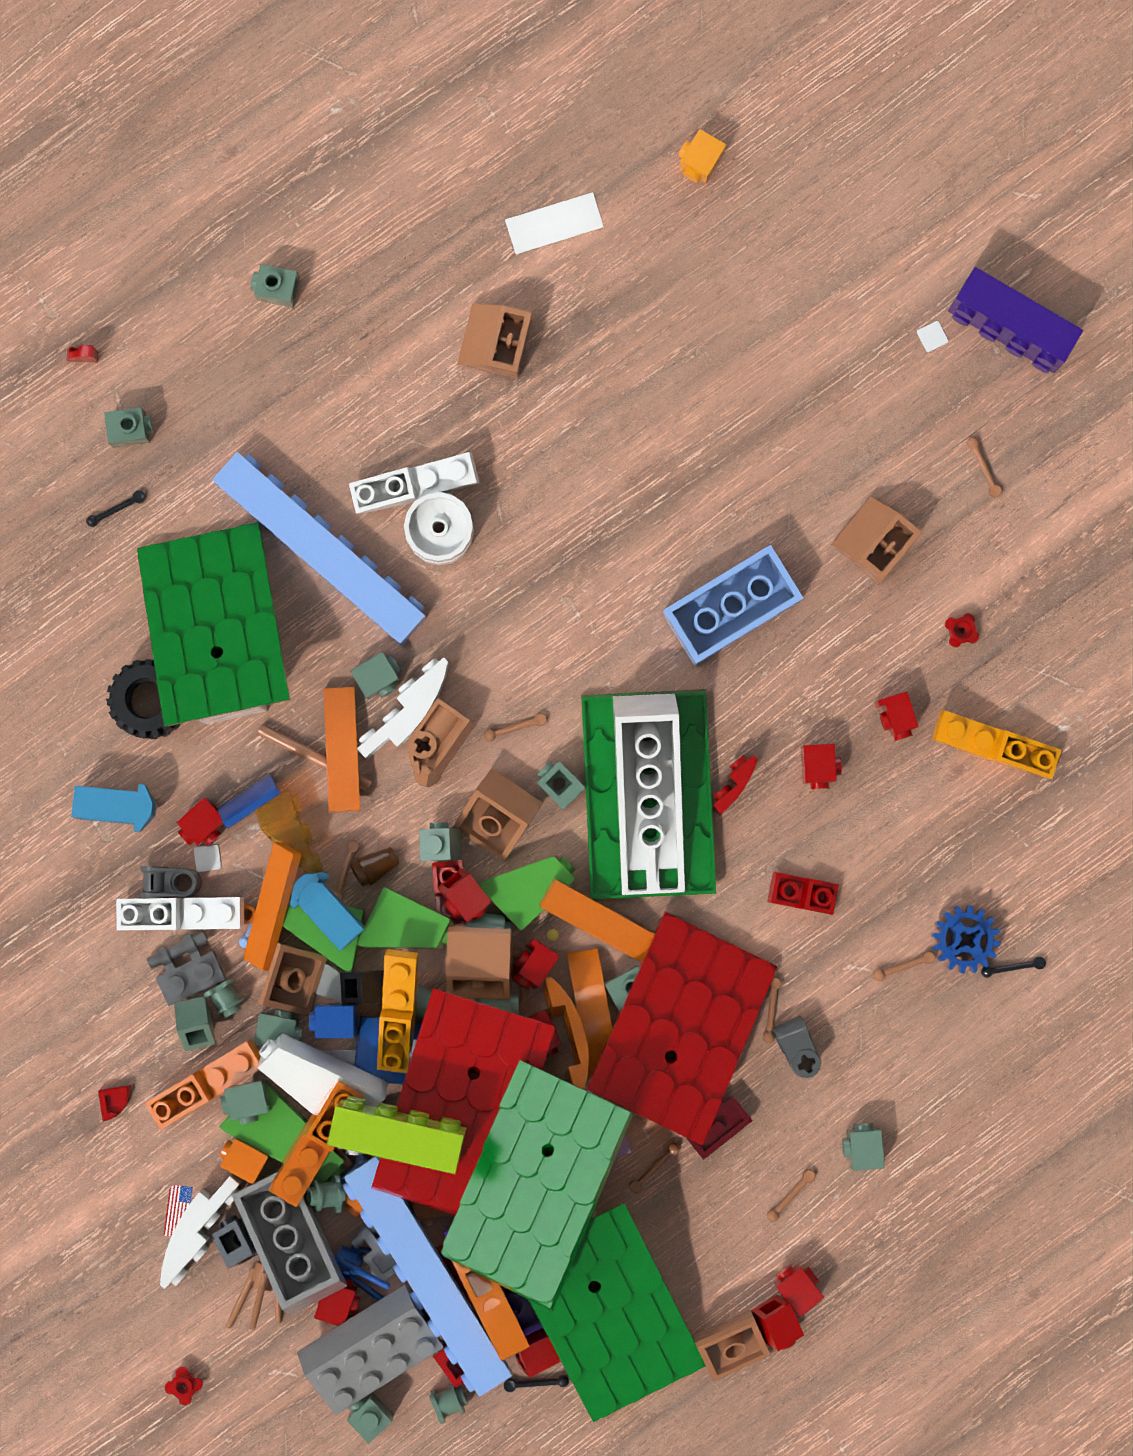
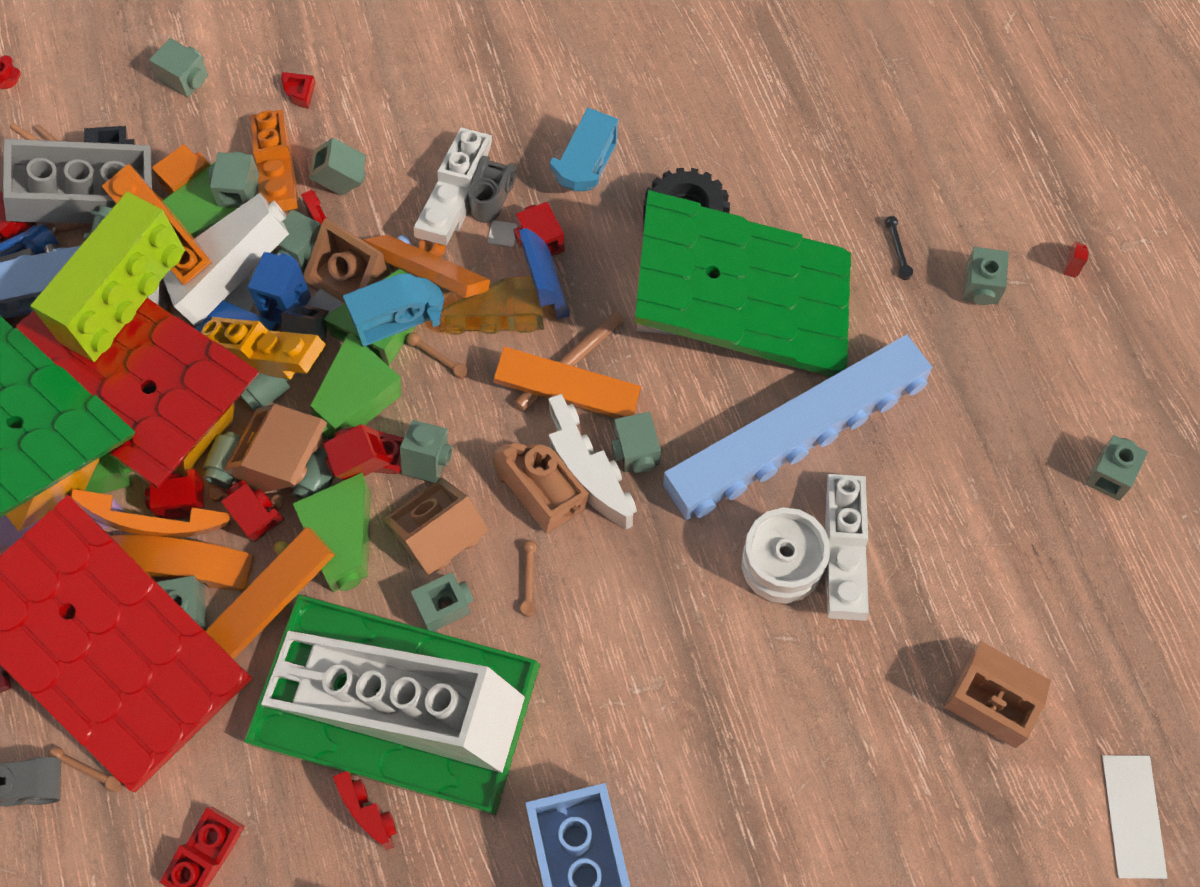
camera: 110 degrees right, 20 degrees down
(129, 1216) = (179, 67): none -> sand green brick
(178, 1201) = (168, 115): sticker -> none
(188, 1237) = (137, 113): white slope -> none
(191, 977) = (387, 182): flat silver plate -> none
(225, 998) = (351, 204): sand green brick -> none
(243, 1026) = (313, 206): none -> red tile
(374, 866) = (429, 380): reddish brown cone -> none

